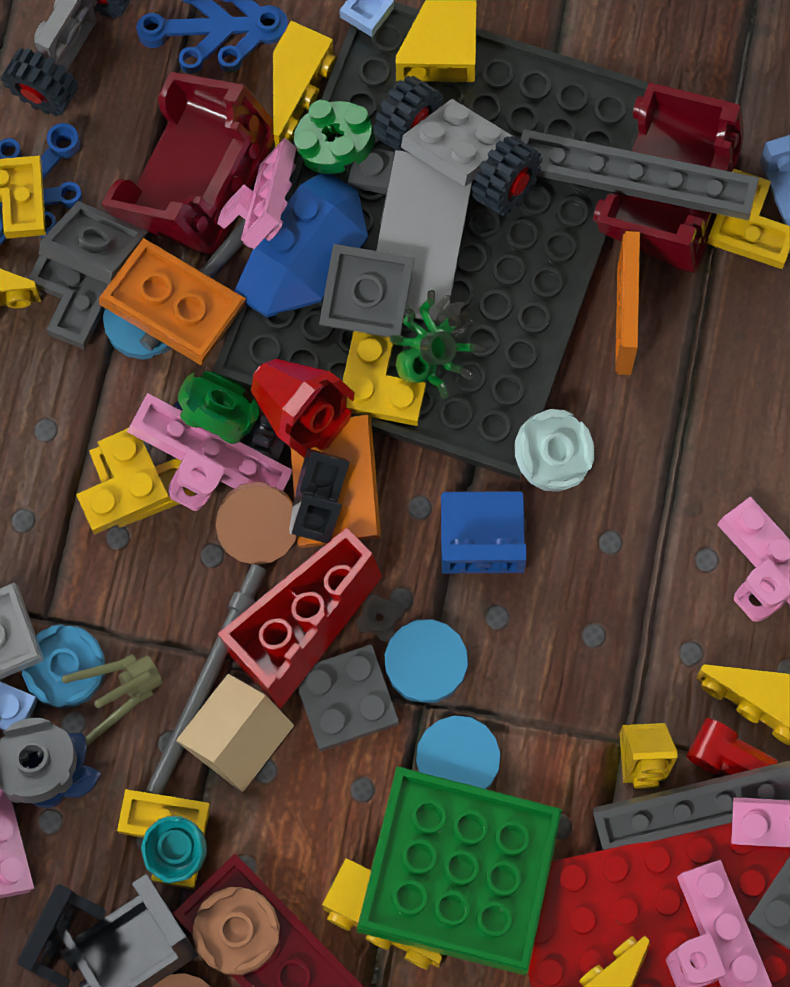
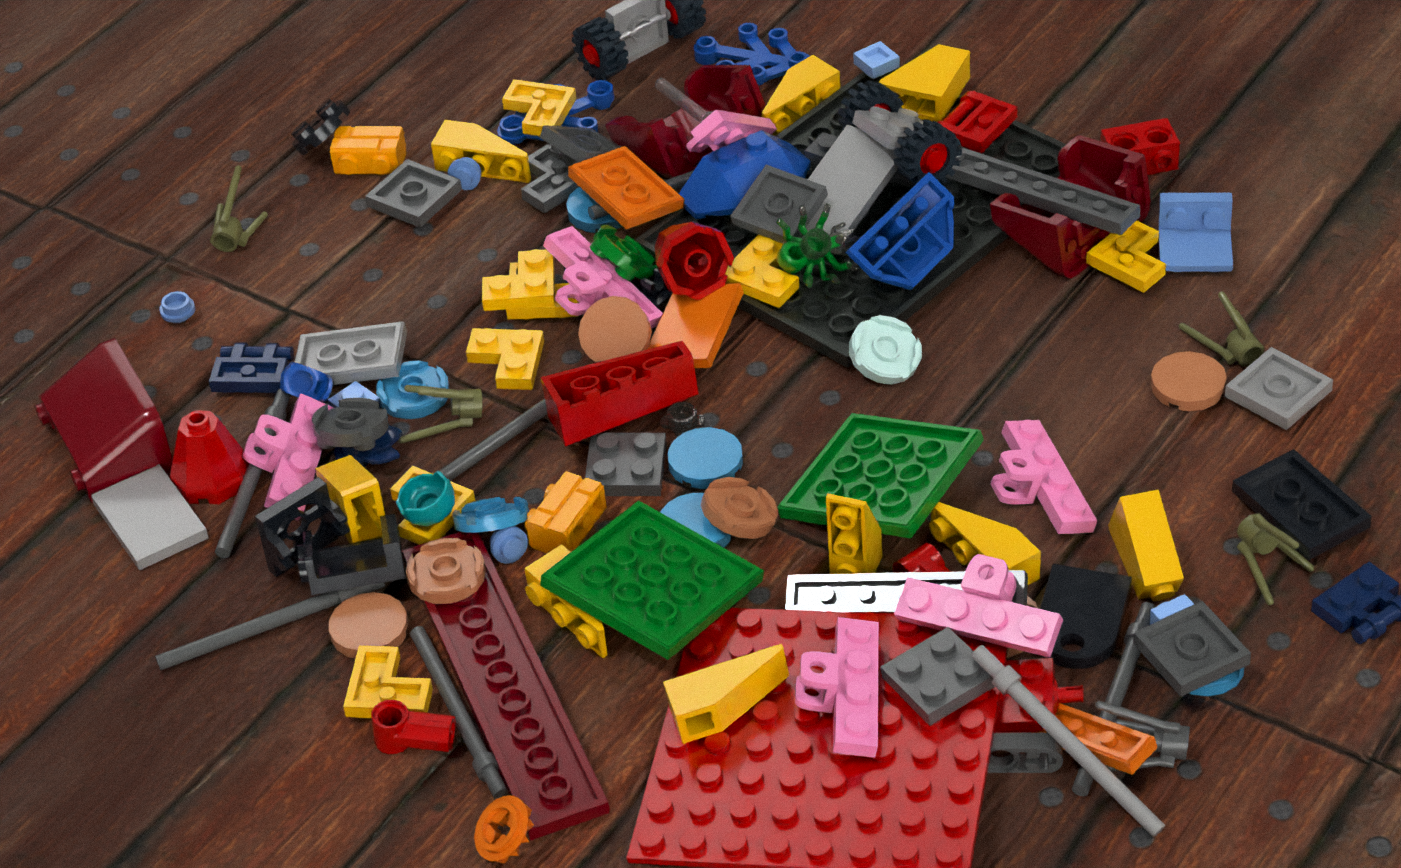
camera: 25 degrees right, 30 degrees down
(82, 860) = (357, 496): none -> yellow slope
(145, 569) = (514, 351): none -> yellow plate
(229, 176) = (681, 100): none -> clear bar
(235, 732) = (524, 458): tan slope -> none
(245, 832) = (490, 515): none -> dark azure tile
(278, 860) = (508, 544): none -> medium blue plate
(317, 496) = (672, 318): black slope -> none
(320, 801) = (565, 513): none -> light orange brick
(331, 118) = (806, 119): plate -> none
(482, 532) = (794, 389): blue bracket -> none
(498, 729) = (739, 508): none -> nougat tile
(519, 294) = (909, 236): none -> blue wedge
(527, 81) = (985, 123): none -> red plate
(626, 637) = (889, 464): none -> green tile
(627, 303) = (992, 268): orange tile -> none
(696, 50) = (1152, 138): none -> red brick

